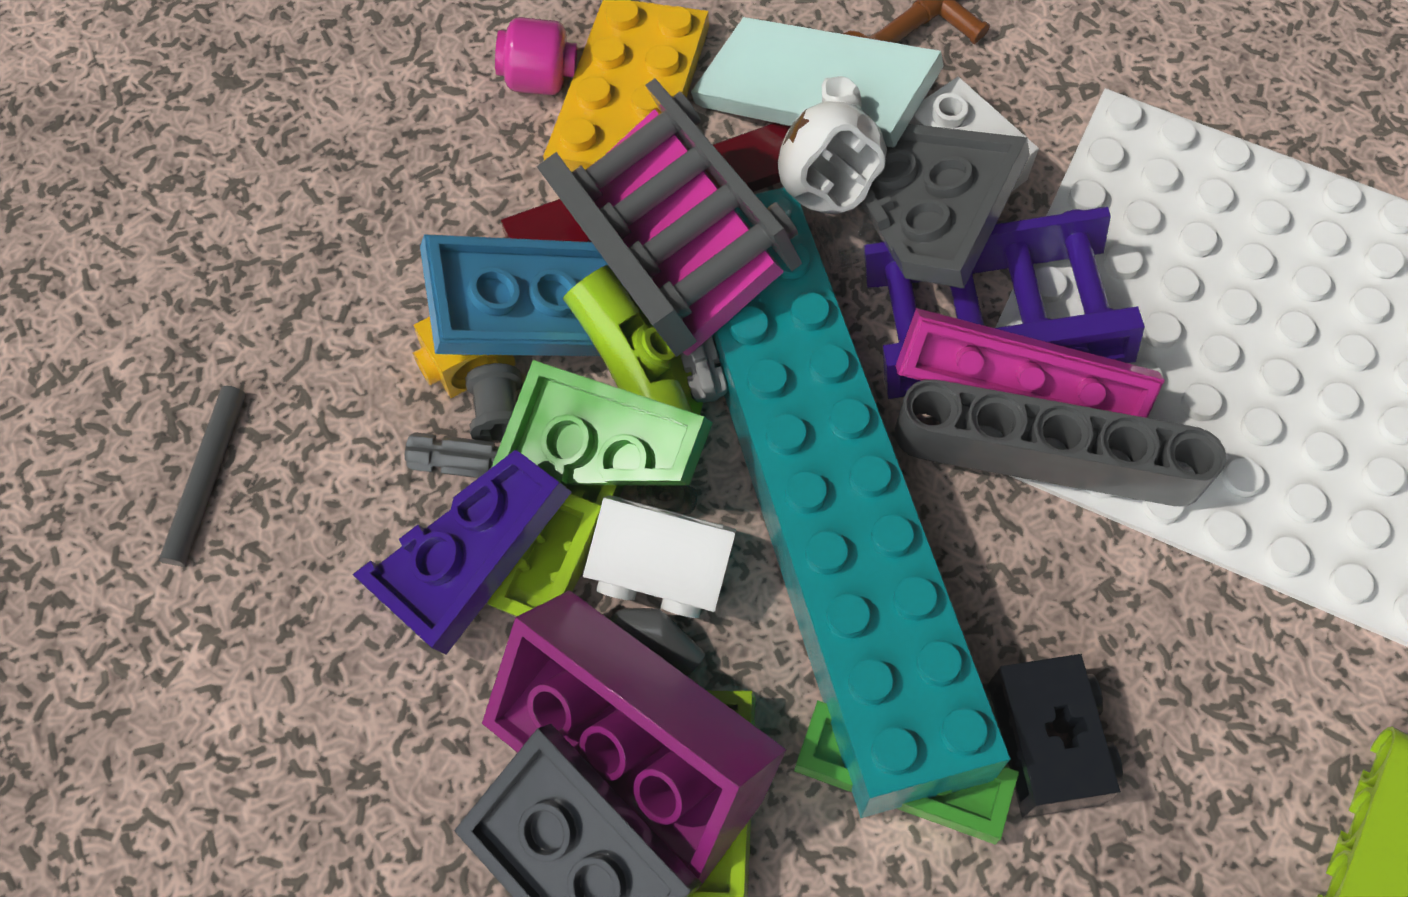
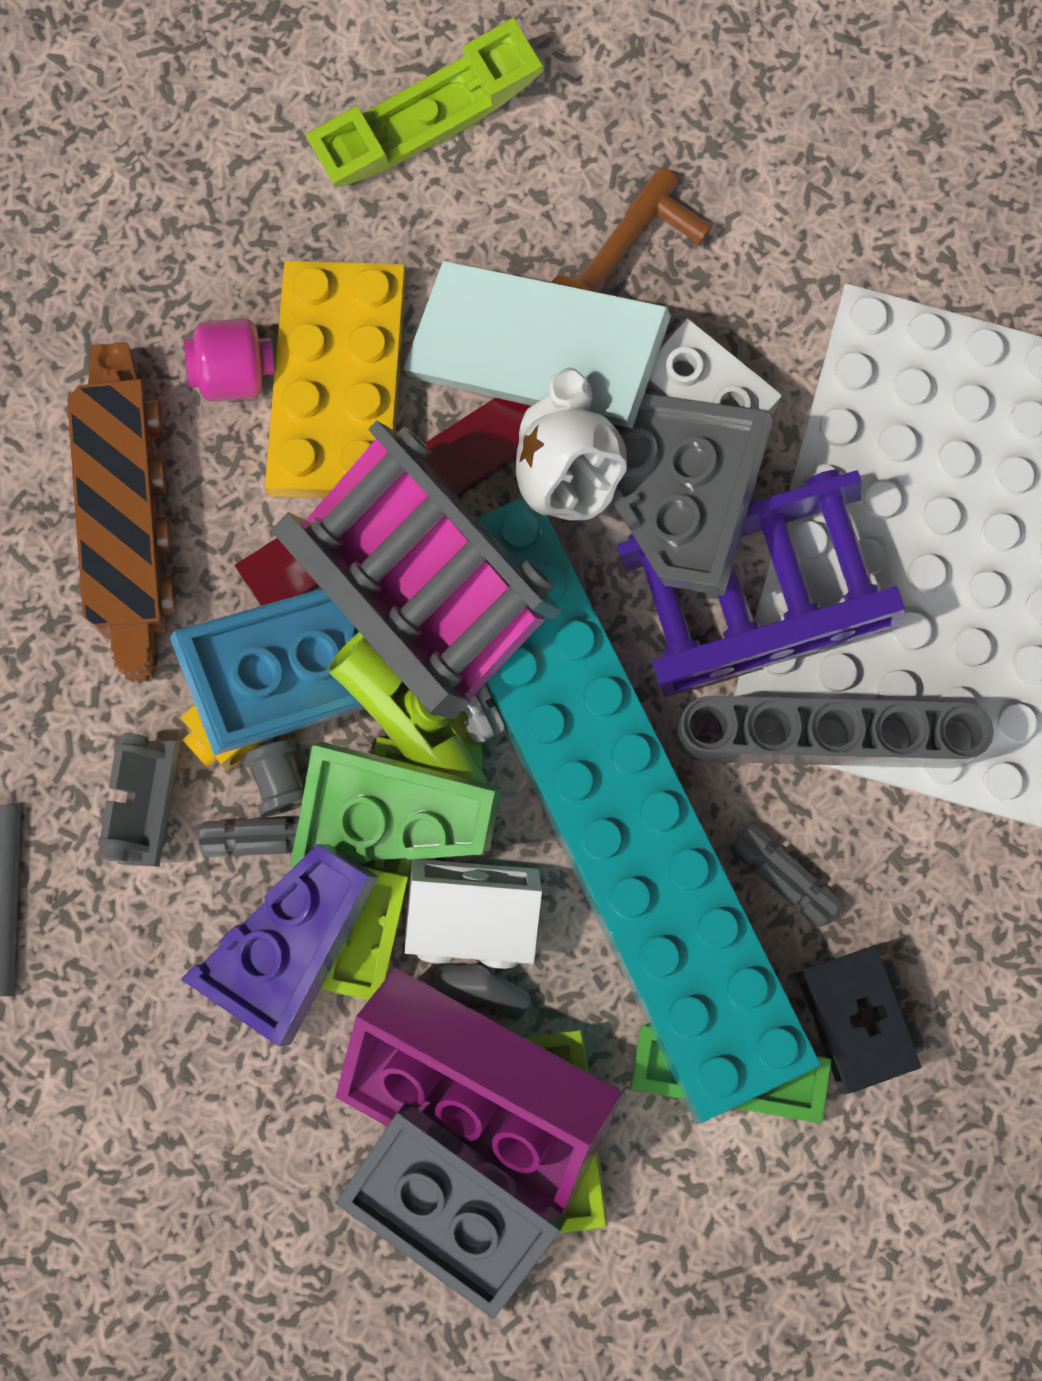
camera: 15 degrees left, 15 degrees up
(346, 424) = (138, 830): none -> dark grey hinge
(405, 161) = (118, 509): none -> dark orange hinge
(990, 583) = (786, 876): none -> dark grey axle
(1012, 363) = (796, 667): dark pink tile -> none

